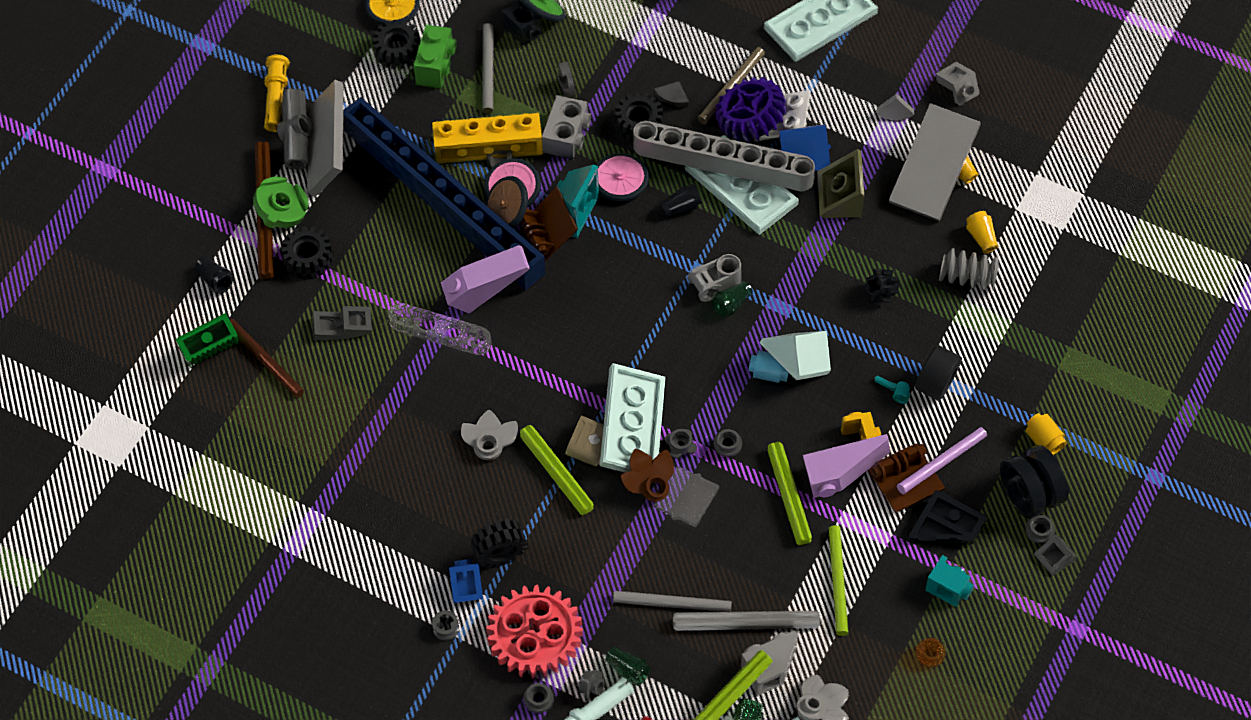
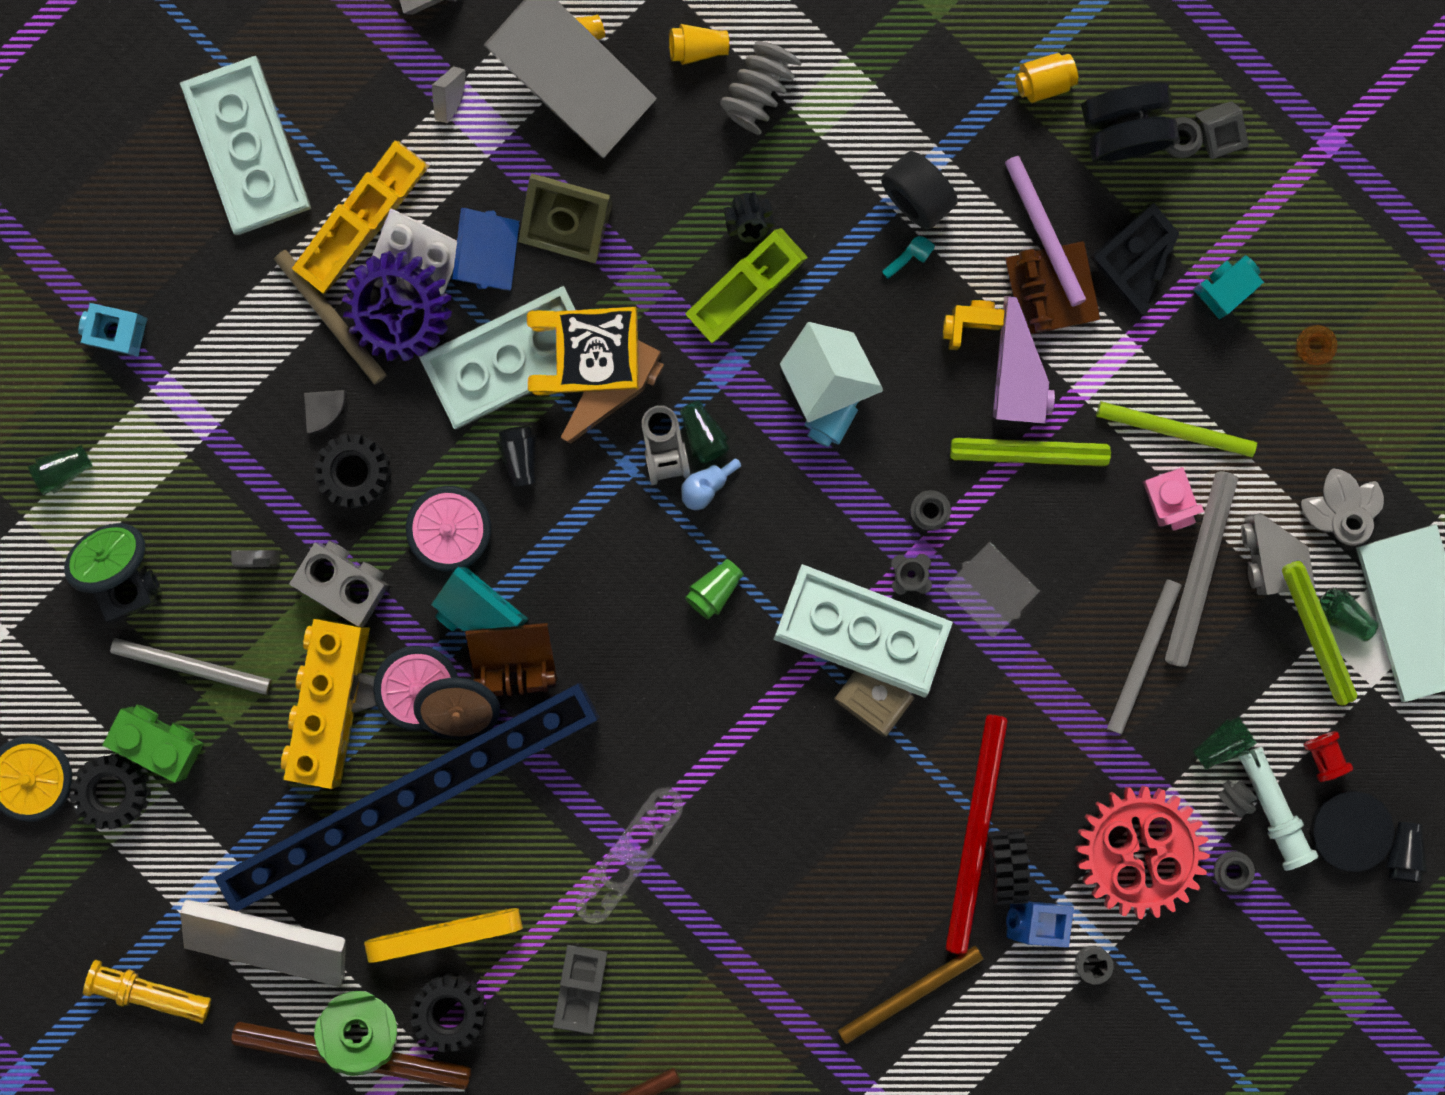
camera: 75 degrees left, 30 degrees up
(295, 129) = (227, 981): dark grey piece -> none
(357, 237) = (443, 935): none -> yellow beam
(394, 519) = (910, 994): none -> pearl gold bar
(483, 279) = (586, 776): lavender slope -> none
(489, 433) = (815, 830): light grey plate -> none
(530, 526) = (976, 834): none -> red axle
(556, 470) = (903, 754): lime axle -> none
(631, 330) = (713, 590): none -> bright green cone
(647, 471) = (952, 636): reddish brown plate -> none
(696, 304) = (701, 486): none -> light blue piece
(723, 156) = (470, 351): light grey beam -> none
(748, 240) = (598, 405): none -> medium nougat slope
(761, 216) = (592, 350): none -> flag
(788, 589) = (1172, 499): none -> bright pink bracket
(792, 78) = (360, 217): none -> yellow slope
(839, 298) = (746, 285): none -> lime slope

